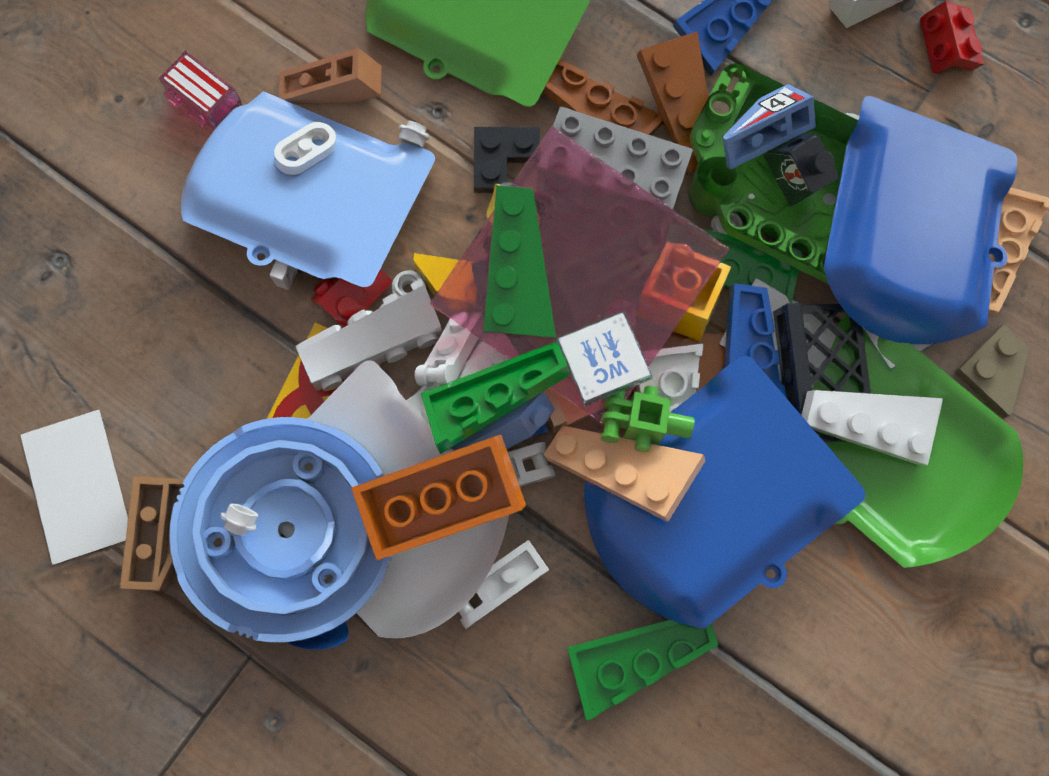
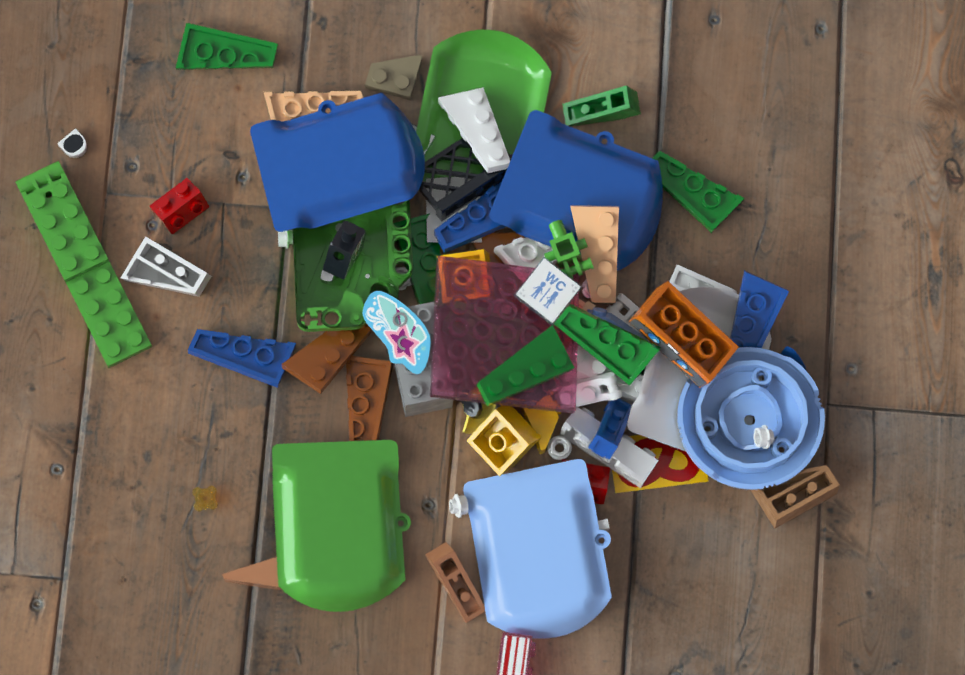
camera: 125 degrees left, 0 degrees up
(76, 486) = (799, 568): white sticker -> none
(301, 146) = (518, 556): white plate -> none
(381, 338) = (611, 428): none -> blue container
(417, 626) = (756, 310): none -> blue wing
(452, 215) = (503, 439): none -> yellow brick
(496, 148) = (436, 451): black plate -> none
(695, 139) = (379, 314): none -> sticker
(769, 124) = (330, 279): medium blue slope -> none
(819, 608) = (602, 107): none -> green slope

